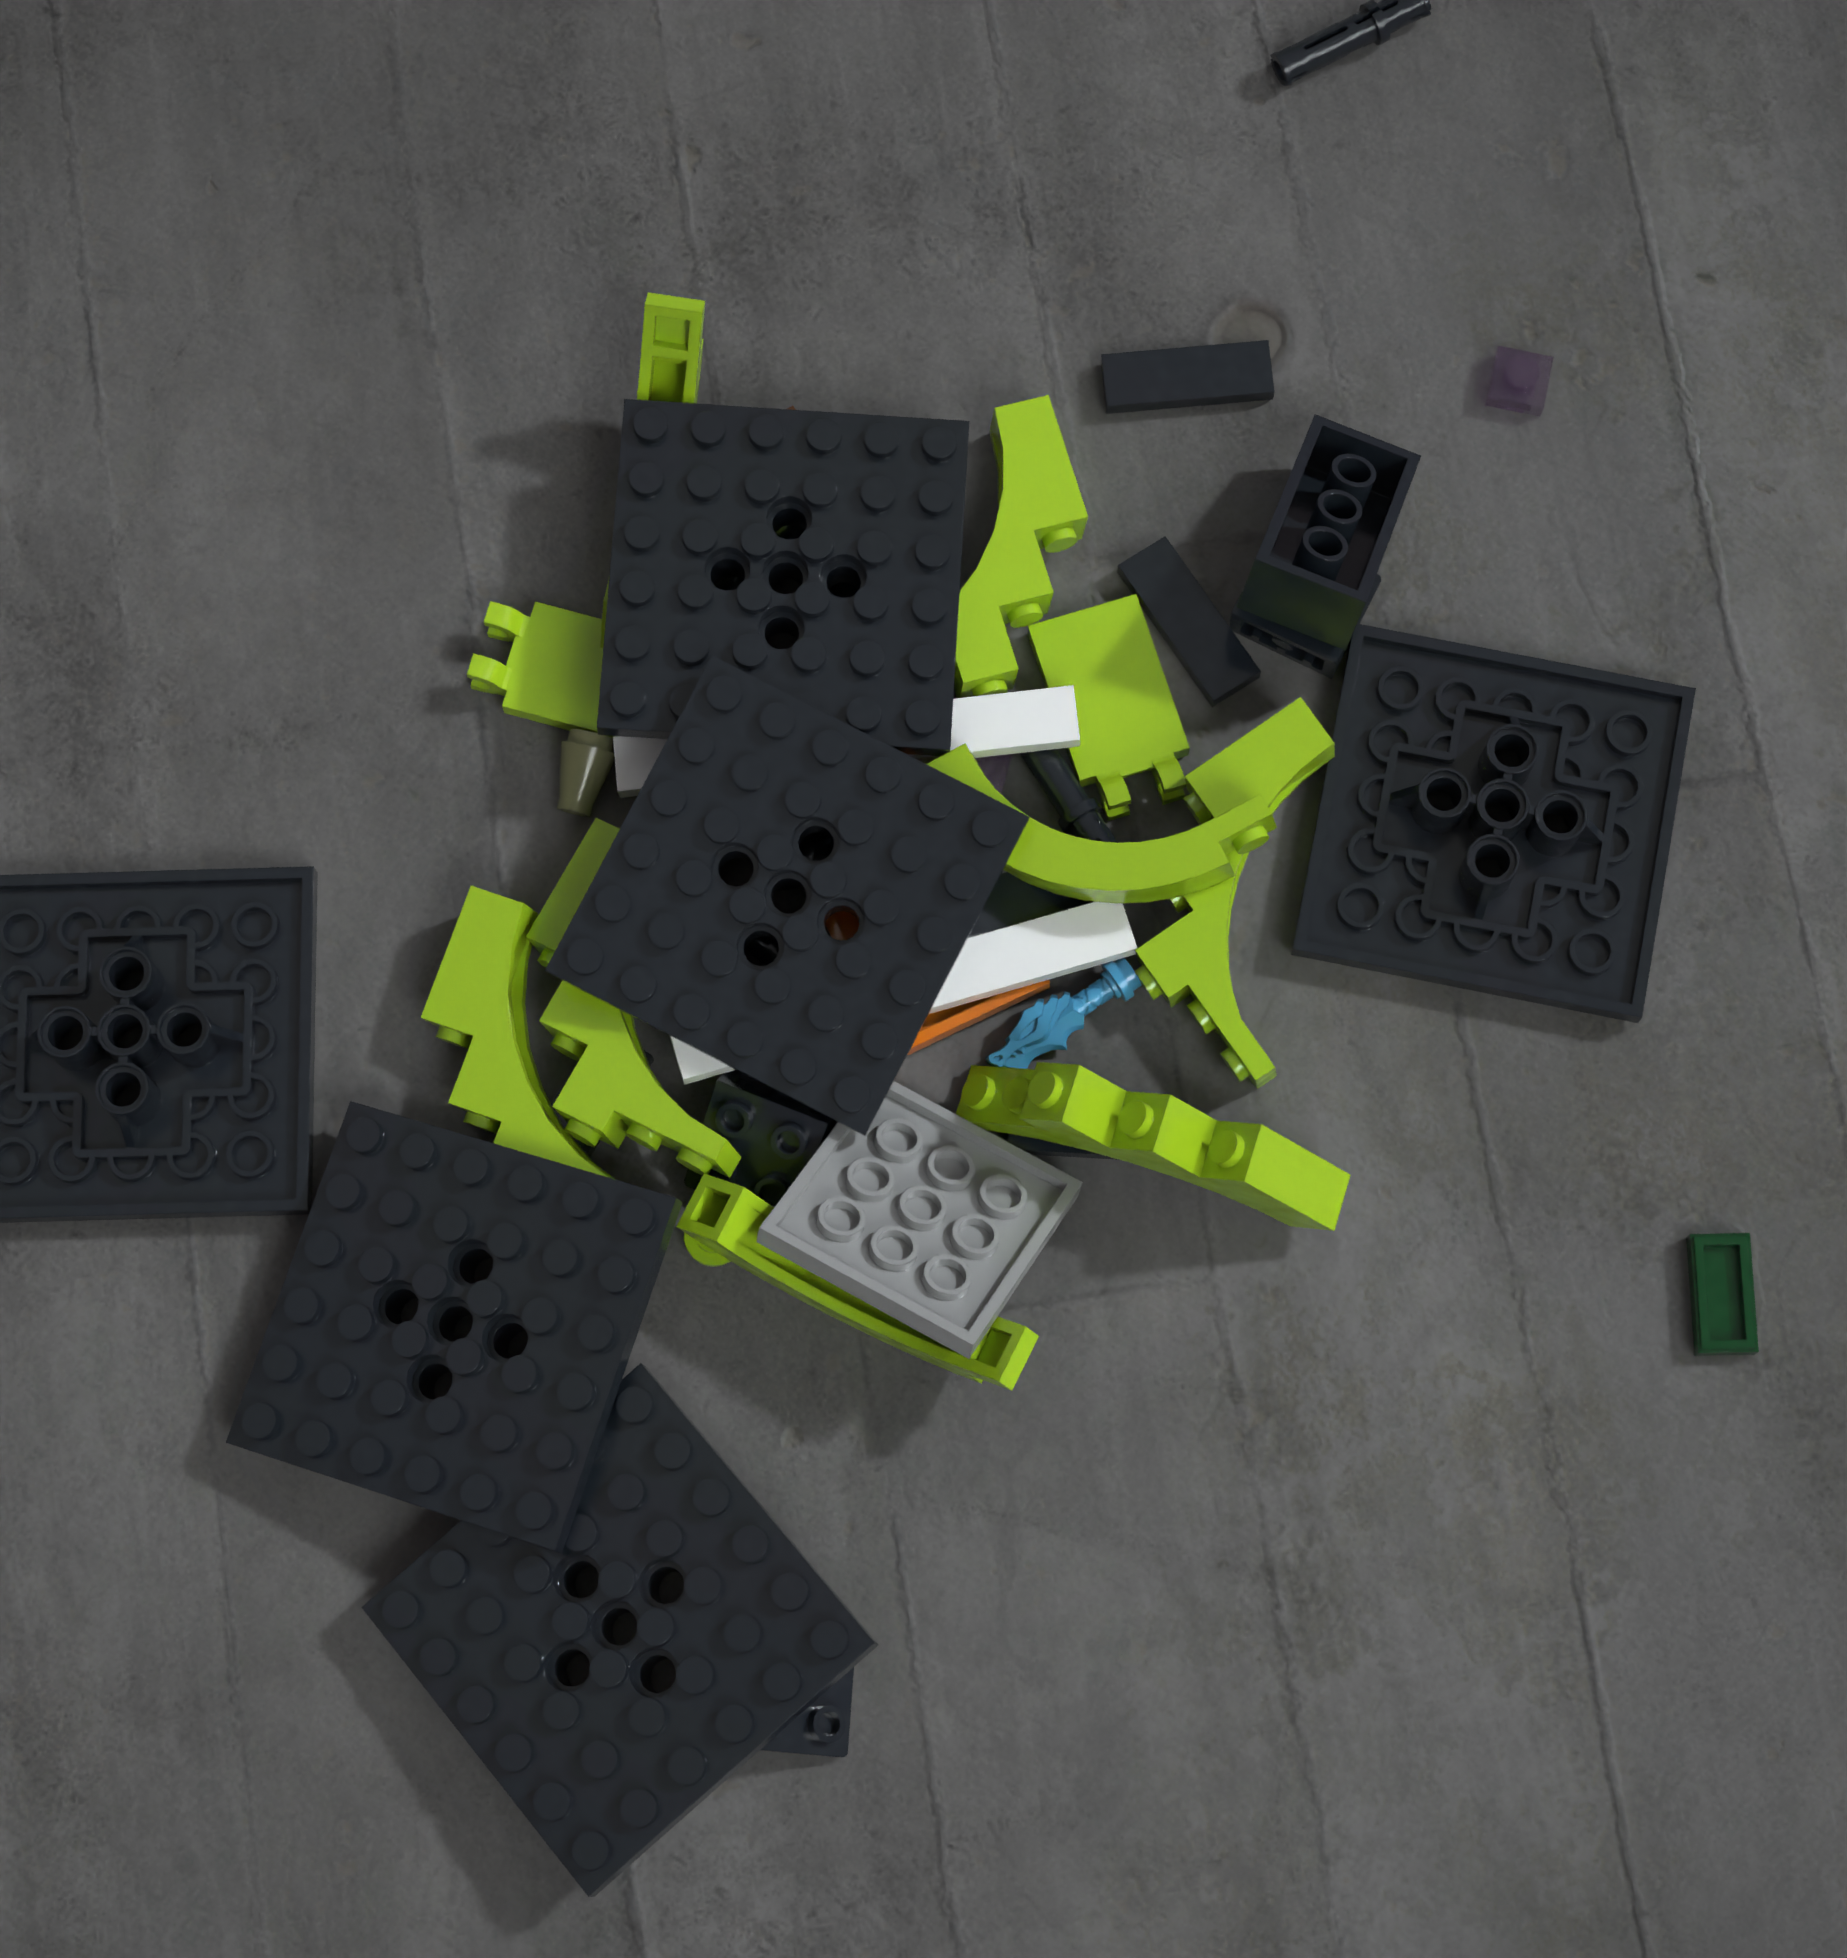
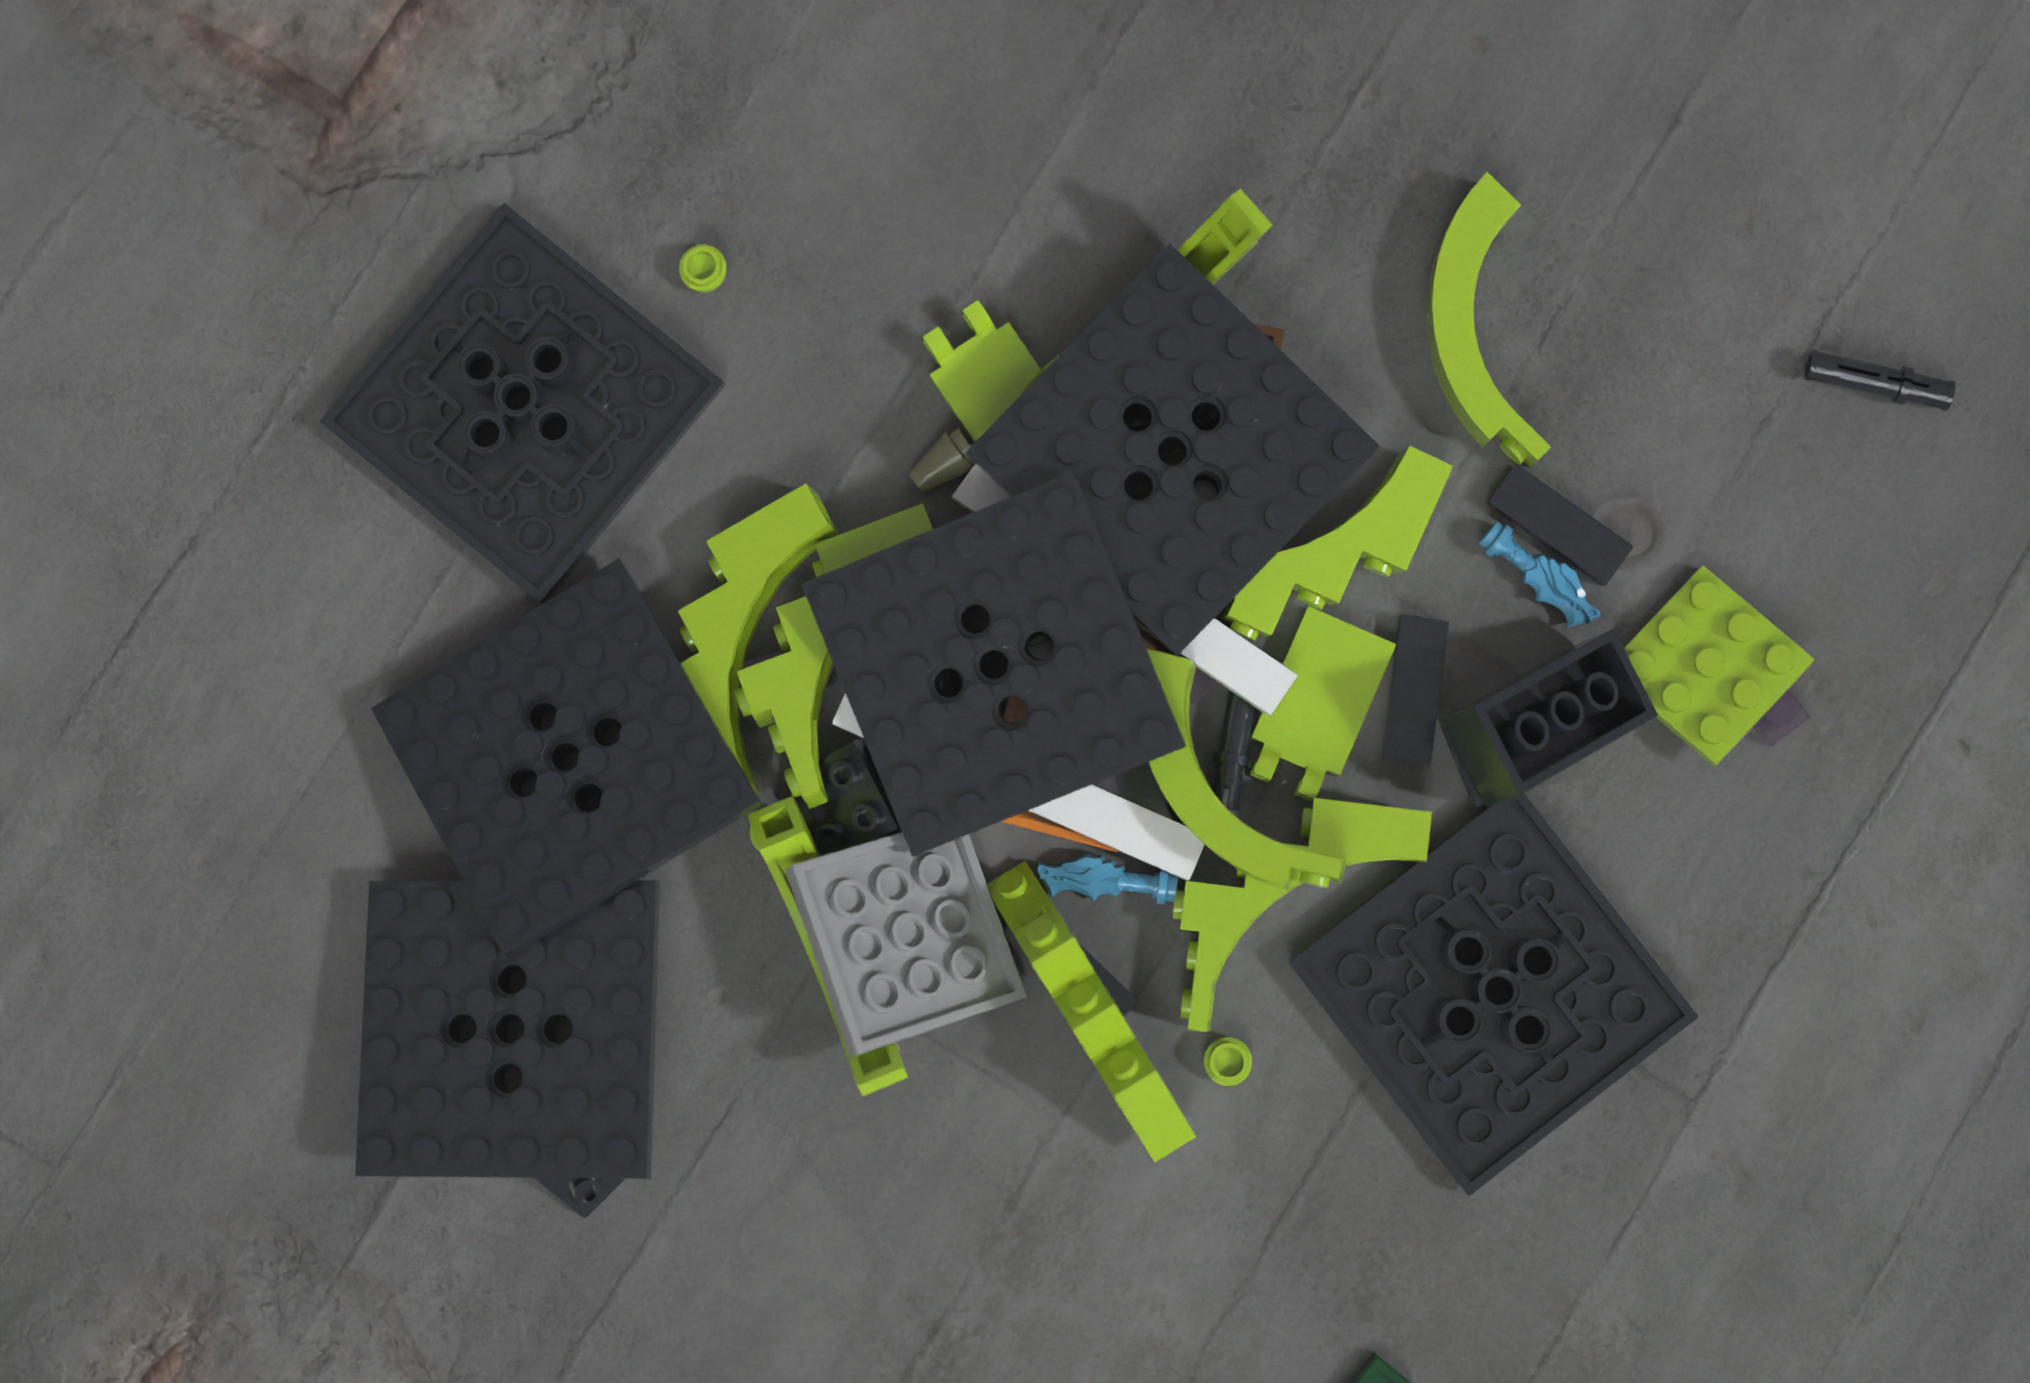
camera: 40 degrees right, 10 degrees up
(206, 786) = (703, 268): none -> lime plate
(947, 291) = (1452, 326): none -> lime arch
(1224, 428) = (1550, 579): none -> dark azure piece
(1317, 1087) = (1227, 1061): none -> lime plate
(1431, 379) = (1713, 665): none -> lime plate

